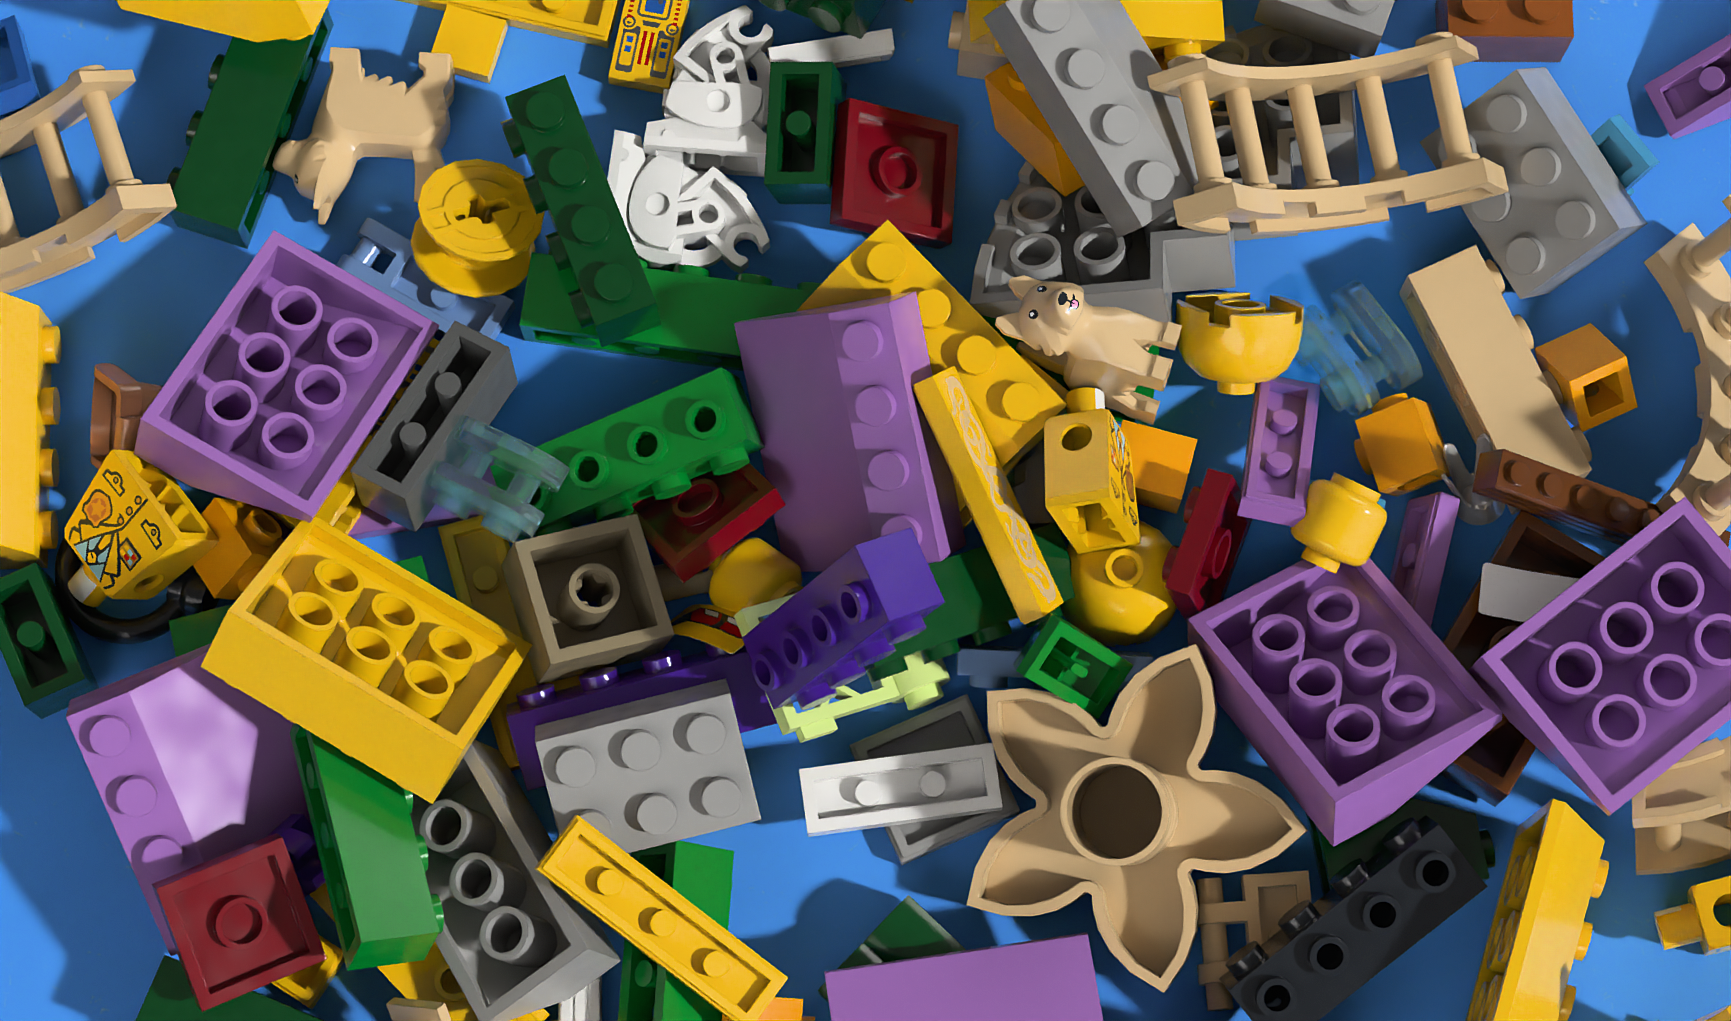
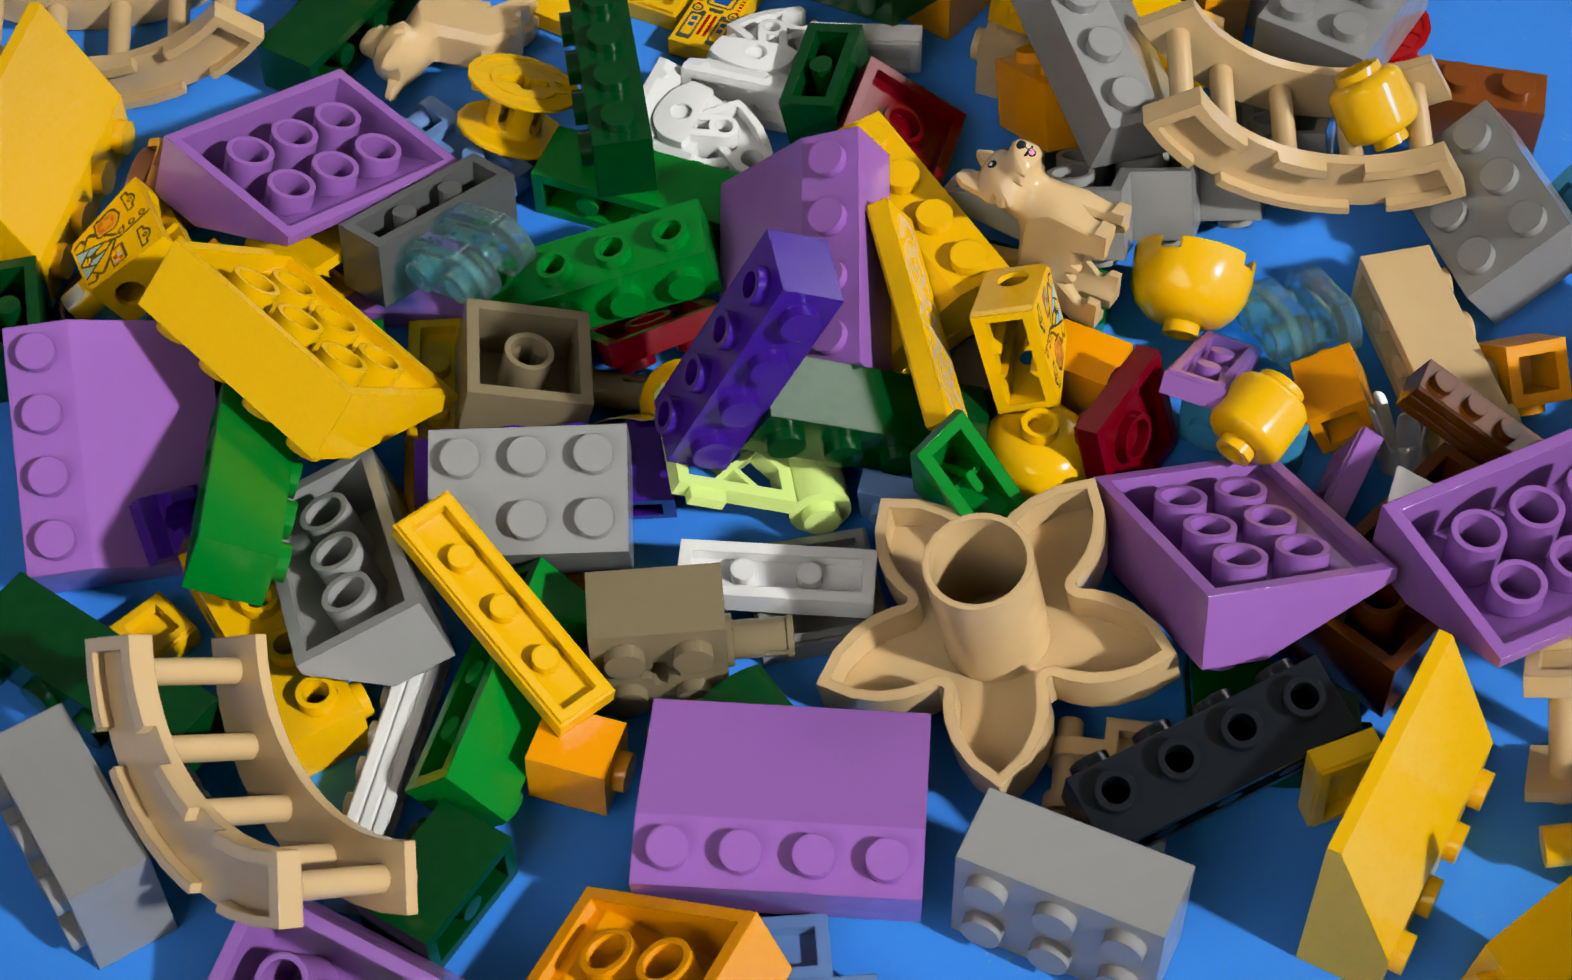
camera: 15 degrees right, 25 degrees down
(239, 921) = (97, 540): dark red plate -> none
(823, 890) = (669, 634): none -> dark tan brick
(1402, 109) = (1373, 104): none -> yellow head
(1476, 915) = (1334, 774): none -> yellow tile

